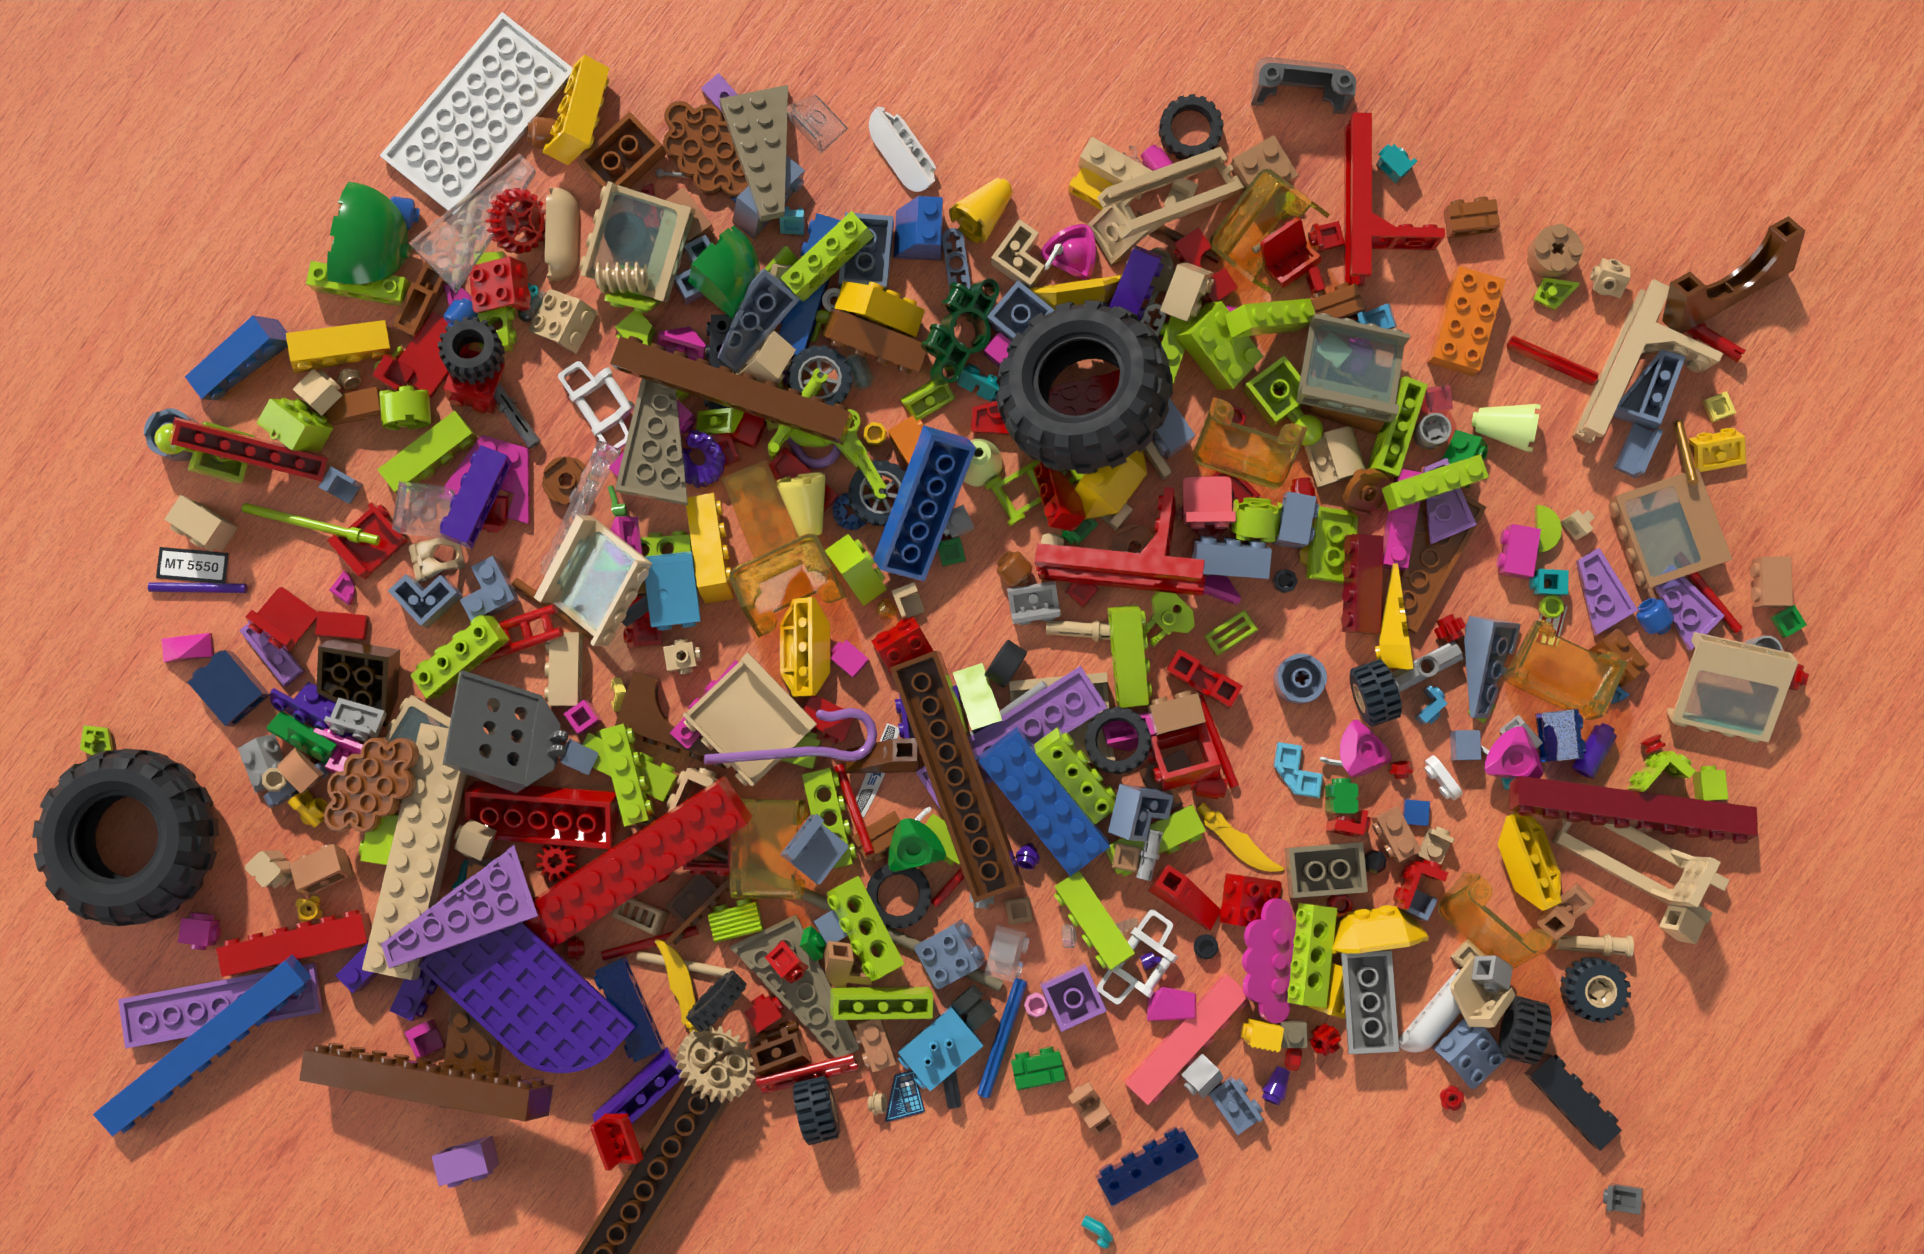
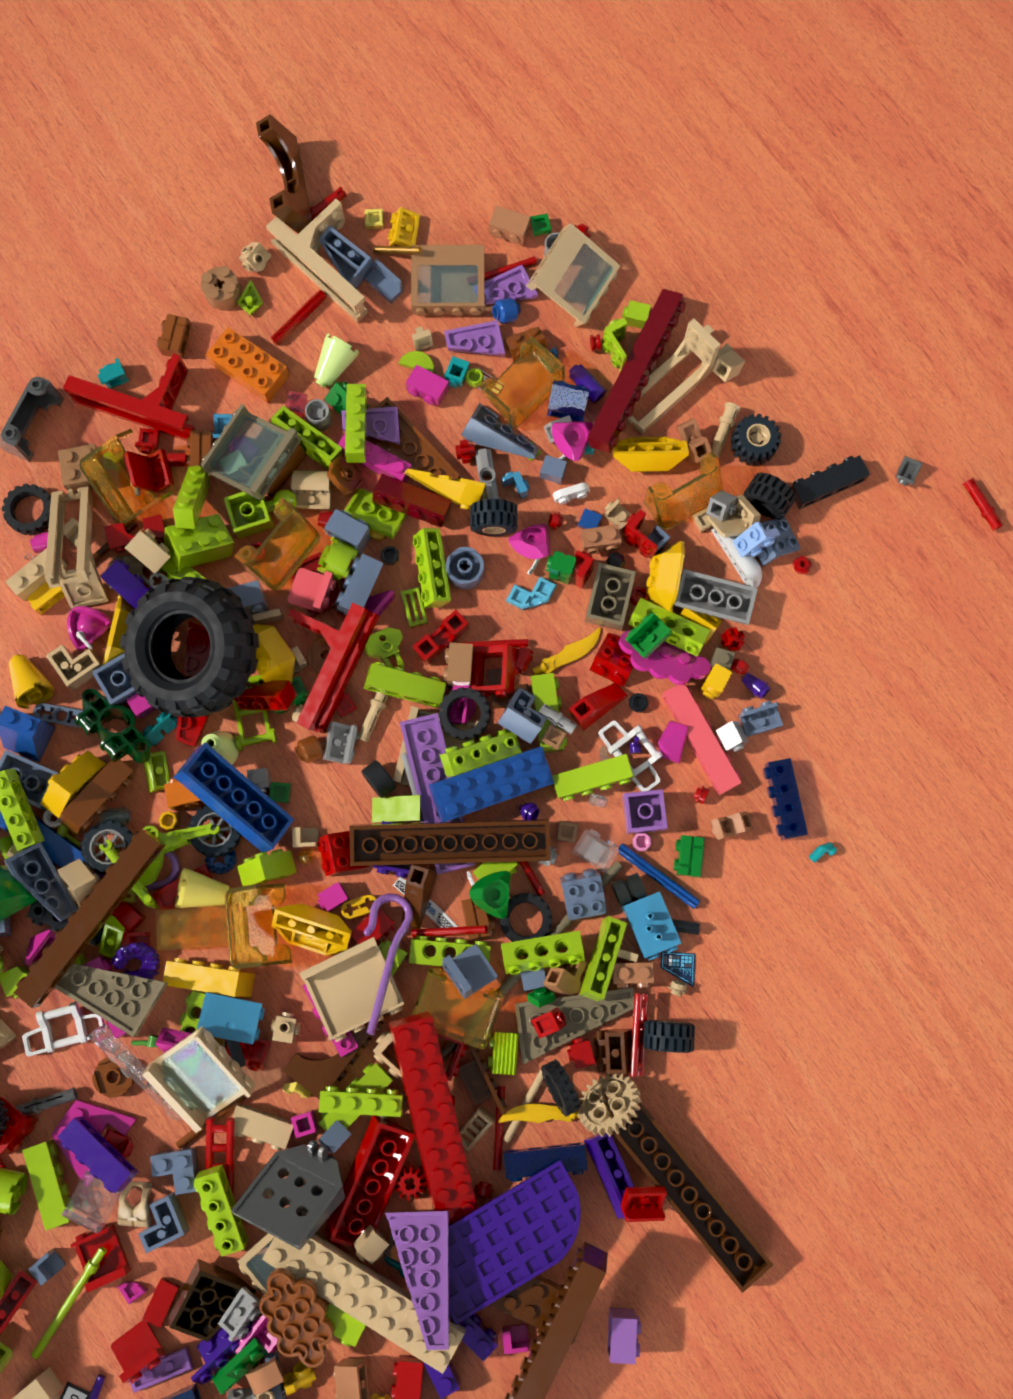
camera: 75 degrees left, 5 degrees down
(853, 689) = (357, 902): none -> yellow beam
(895, 1031) = (627, 955): none -> tan tile
(1117, 1059) = (701, 794): none -> red plate
(1286, 638) = (431, 568): none -> lime brick
(1290, 934) = (648, 635): none -> green bracket
(1460, 1028) = (755, 539): none -> light blue bracket

